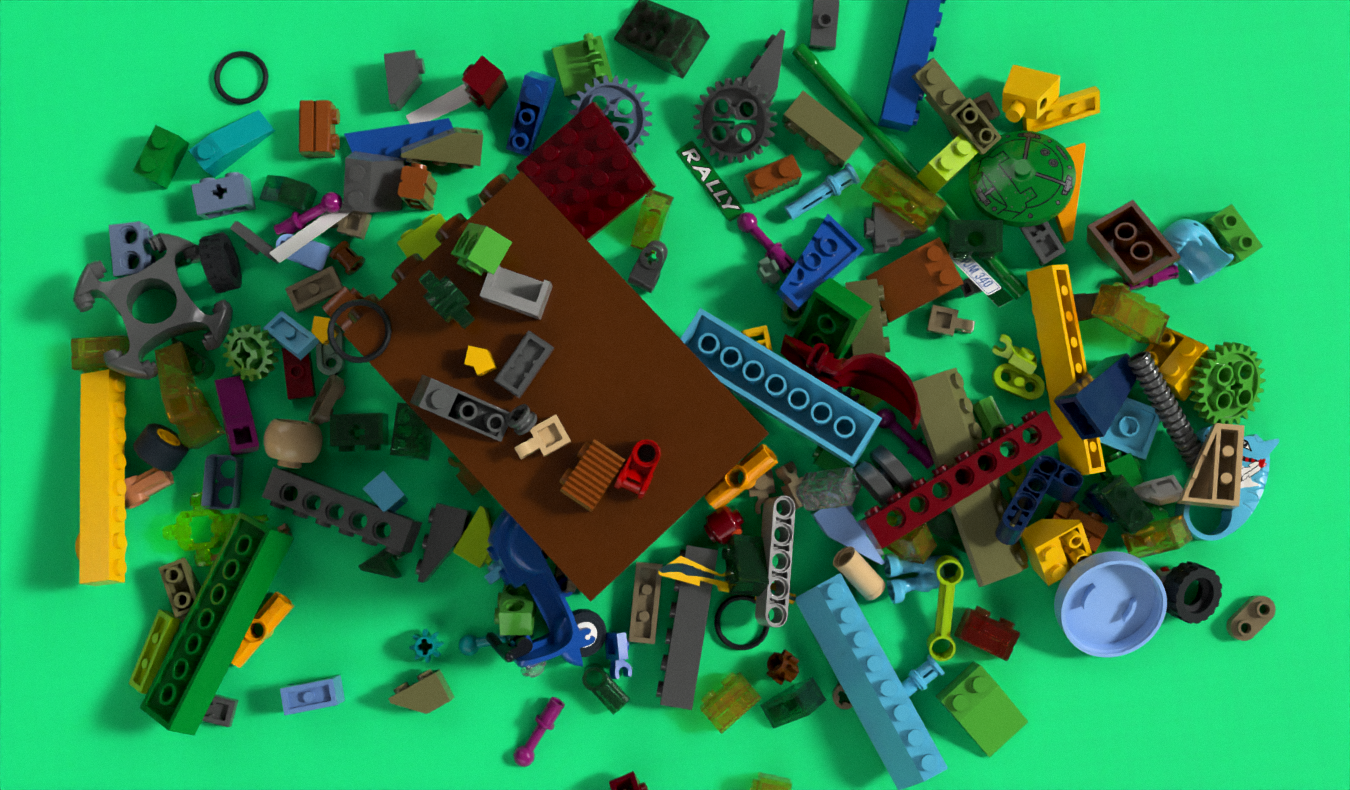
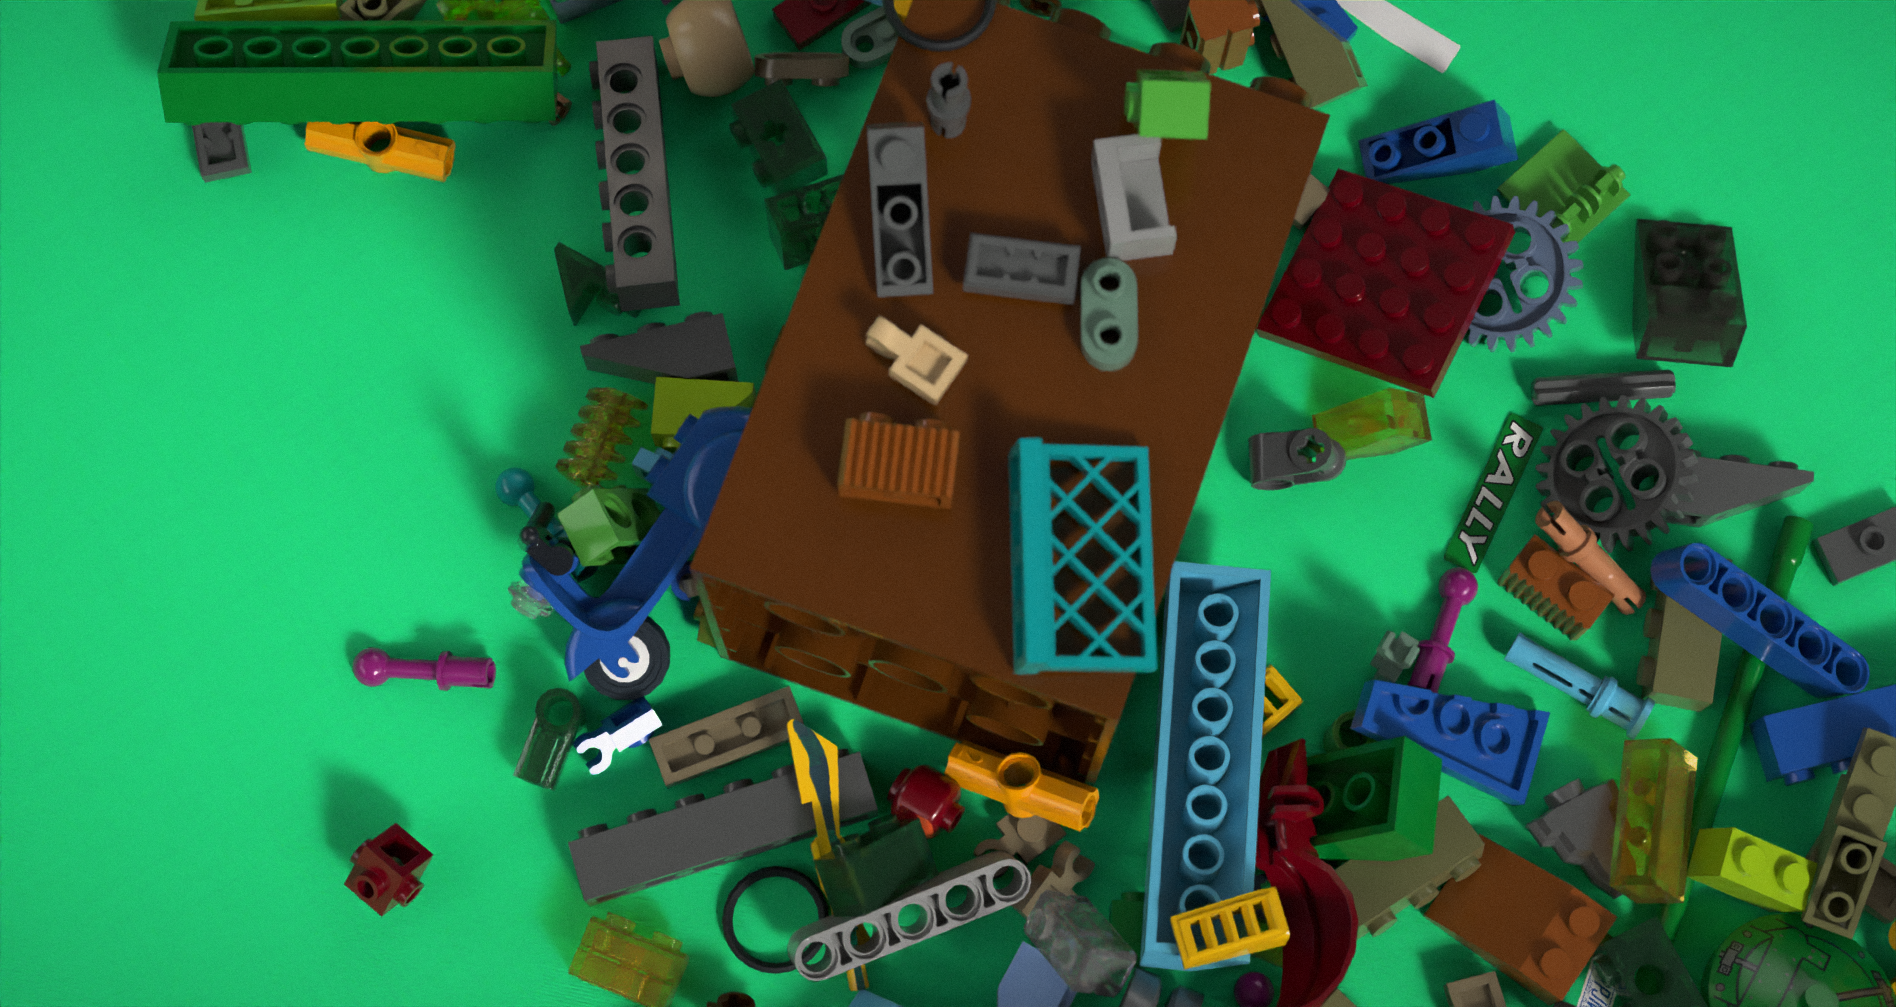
camera: 60 degrees right, 10 degrees down
(312, 695) = (315, 277): medium blue panel -> none
(385, 493) = (698, 224): medium azure panel -> none
(414, 356) = (948, 100): none -> dark grey pin
(422, 652) = (481, 431): teal gear -> none
(425, 695) = (399, 454): olive slope -> none
(446, 299) = (1061, 93): clear green gear -> none
(467, 592) = (599, 436): none -> clear yellow piece
(480, 360) = (991, 199): yellow piece -> none
(484, 83) = (1444, 49): dark red brick -> none
(521, 419) = (930, 307): dark grey bush -> none
(567, 333) = (1108, 311): none -> sand green plate
(638, 470) = (946, 532): red piece -> none
(672, 434) = (1033, 562): none -> teal fence
(687, 101) = (1592, 387): none -> dark grey axle
(764, 156) = (1579, 545): none -> nougat pin
(838, 95) = (1759, 621): none -> blue beam
(866, 396) = (1224, 910): none -> yellow slope

